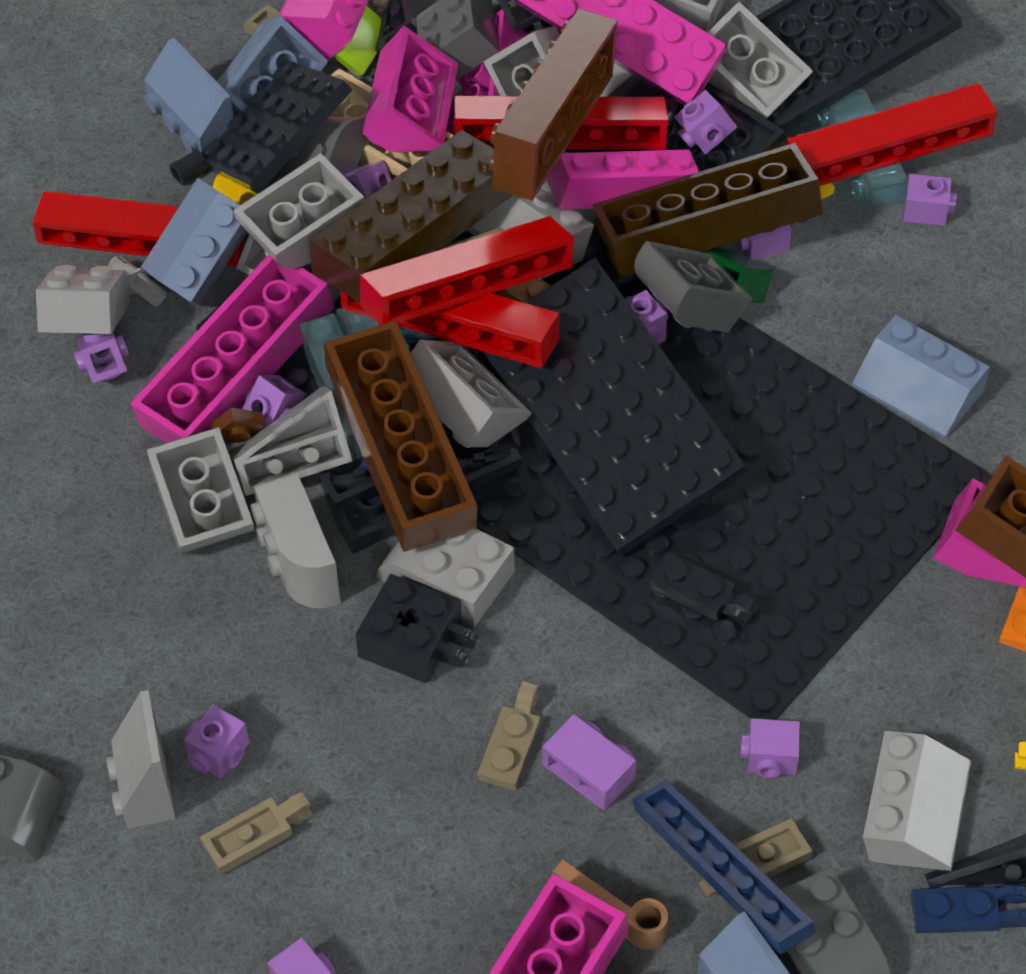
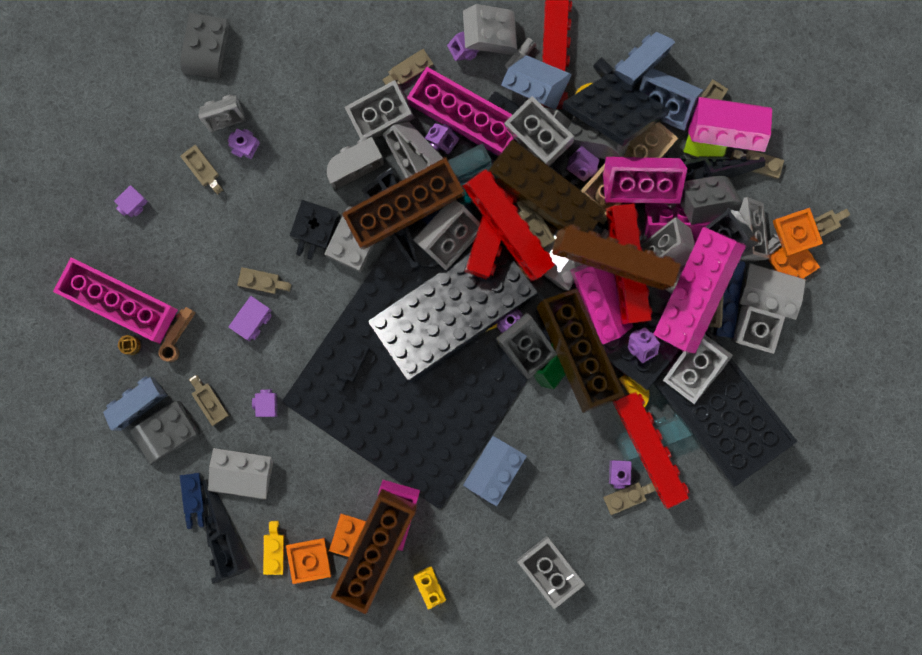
camera: 80 degrees right, 30 degrees up
(122, 456) = (409, 68): none -> dark tan hinge
(238, 424) = (420, 123): reddish brown plate -> none
(724, 866) = (191, 383): dark blue plate -> none
(973, 198) = (627, 497): none -> dark tan plate

